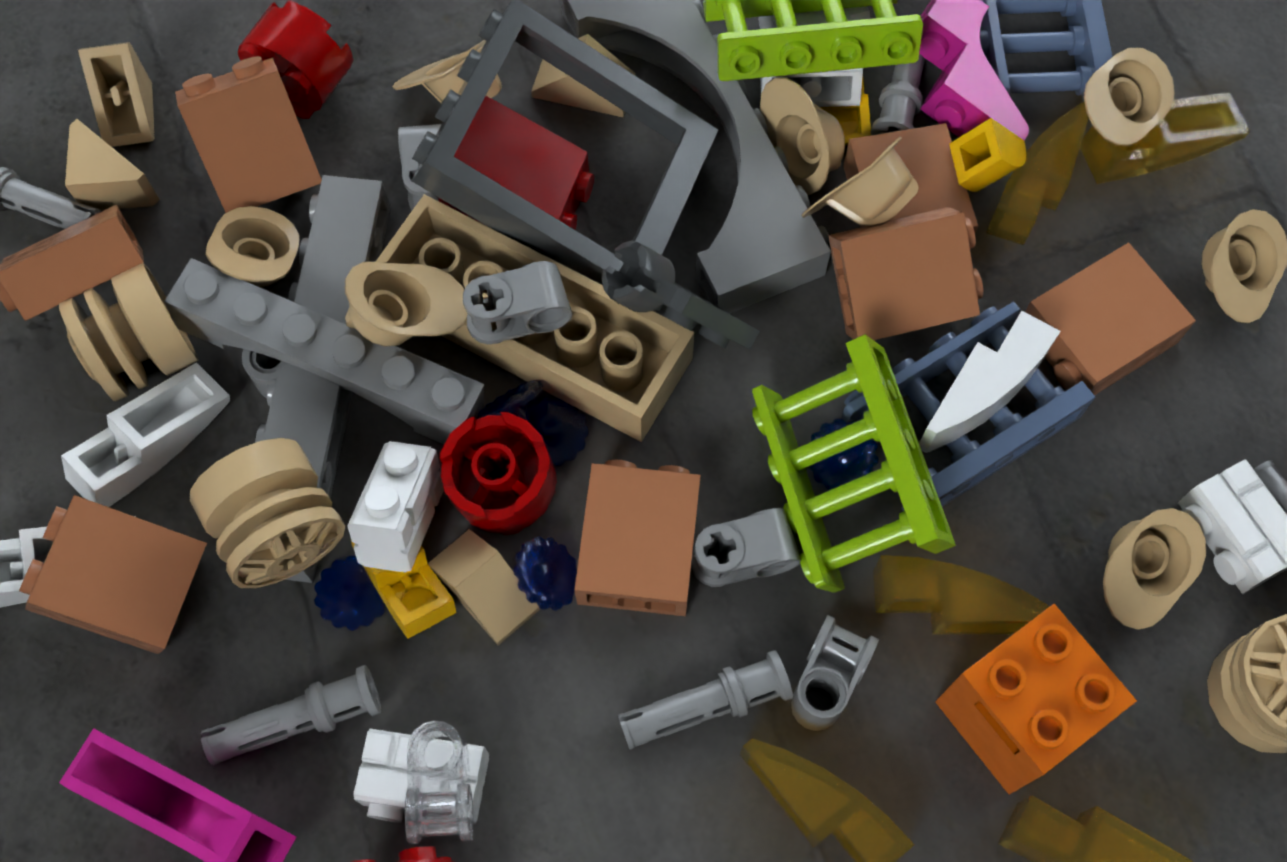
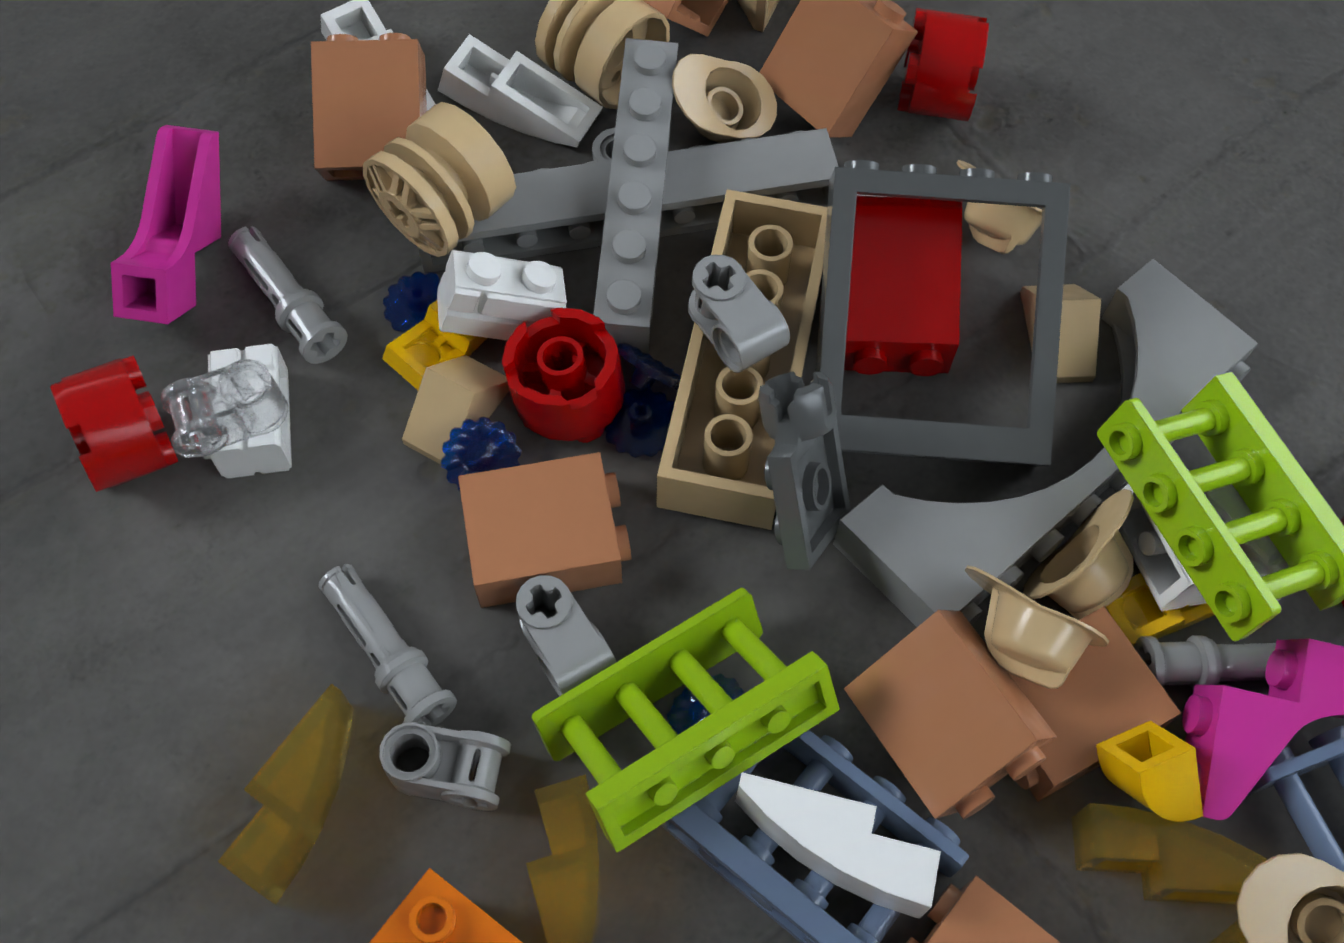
camera: 70 degrees right, 5 degrees down
(402, 301) = (697, 212): tan piece -> none

